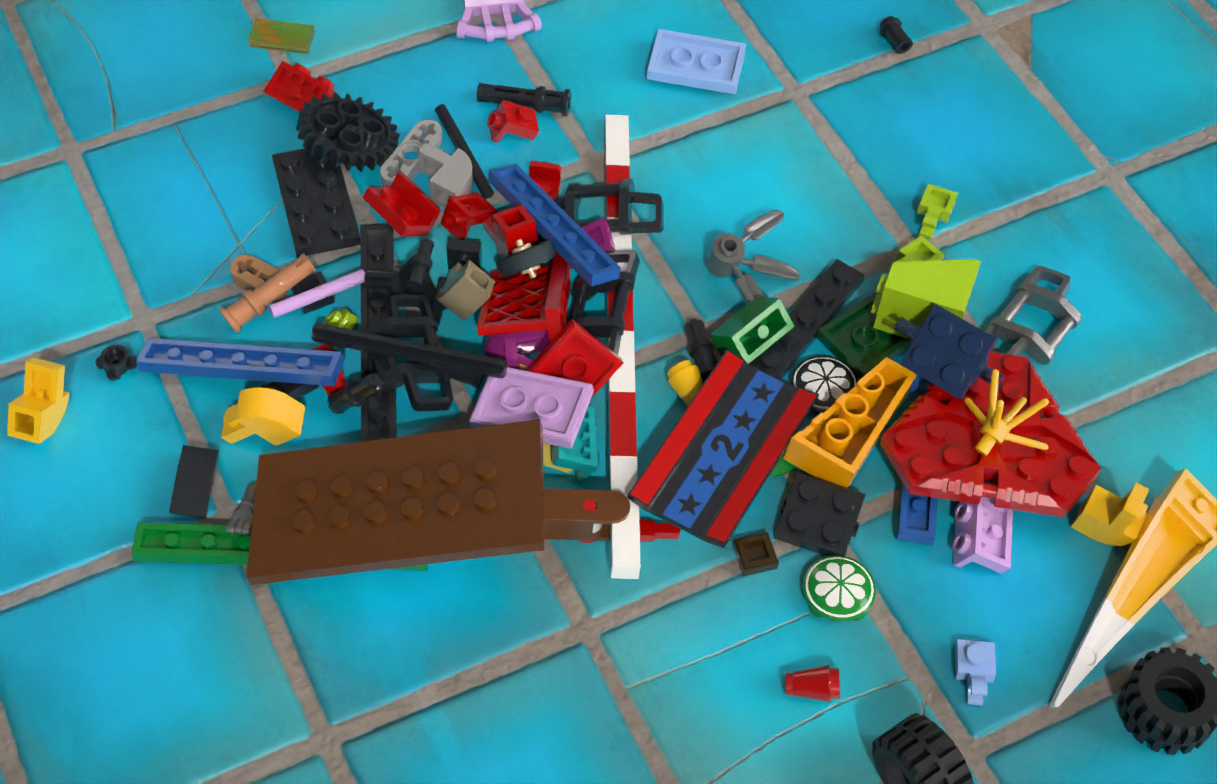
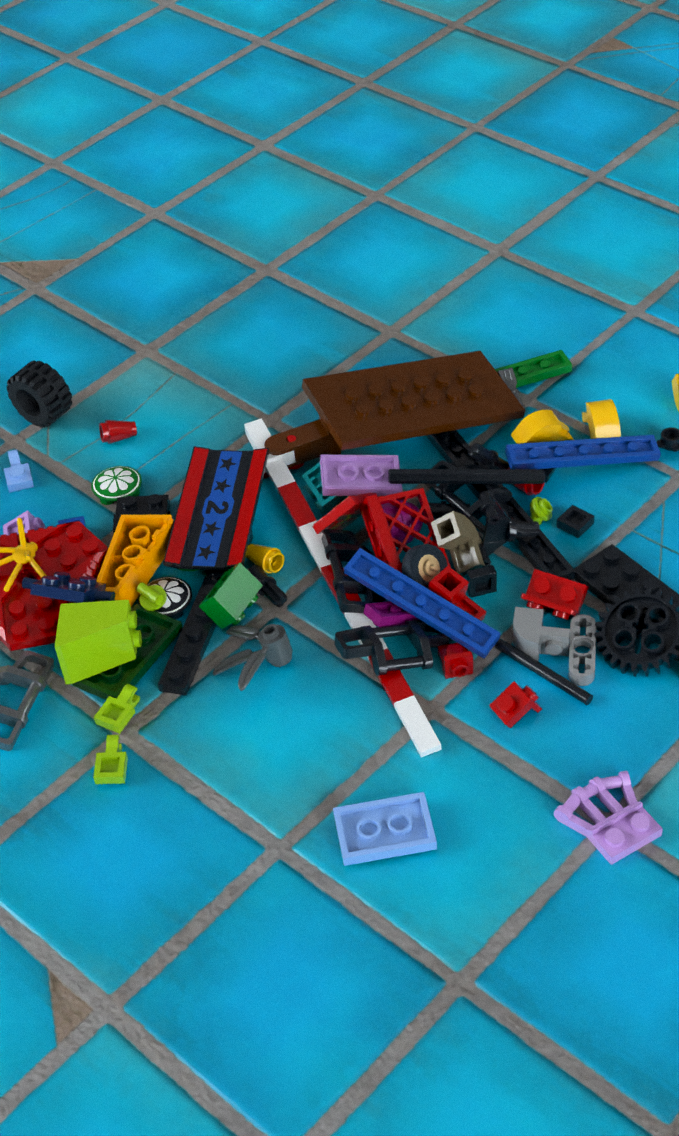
camera: 165 degrees right, 10 degrees down
(176, 403) = (602, 419): none -> yellow brick
(194, 482) = (558, 396): black slope -> none
(254, 302) = (606, 494): nougat pin -> none
(260, 273) = (623, 521): medium nougat beam -> none
(317, 293) = (565, 510): lavender bar -> none
(465, 212) = (500, 613): red bracket -> none
(537, 98) = (508, 733): black pin -> none
(755, 554) = (174, 484): dark brown tile -> none
(842, 361) = (151, 596): none -> lime plate
(891, 28) = (203, 945): black pin -> none

